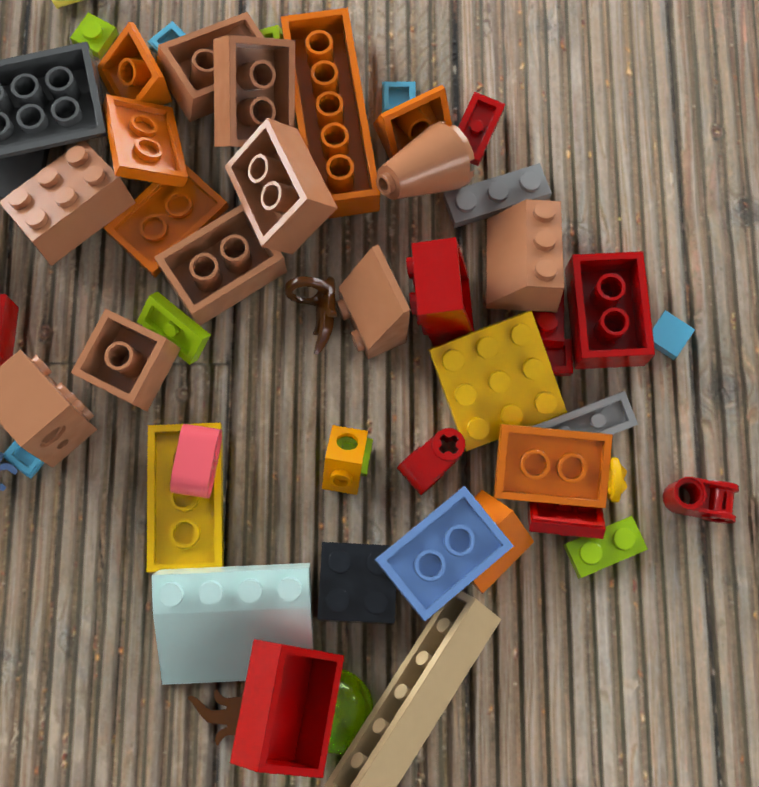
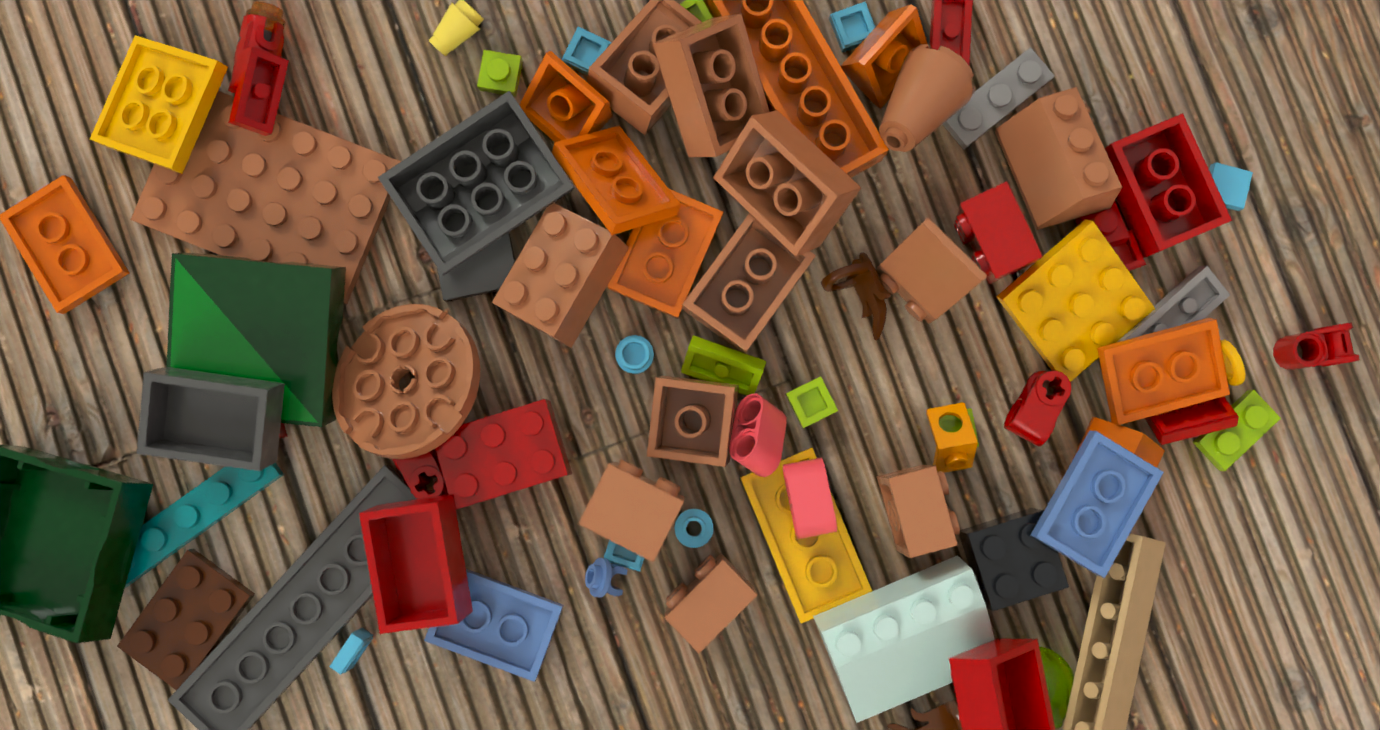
camera: 15 degrees left, 10 degrees up
(70, 517) = (708, 601): none -> nougat brick
(98, 464) = (693, 515): none -> medium azure plate
(104, 293) = (634, 354): none -> medium azure plate
(175, 392) = (758, 435): none -> coral beam
(237, 385) = (811, 402): none -> lime plate
(286, 504) = (918, 510): none -> nougat brick

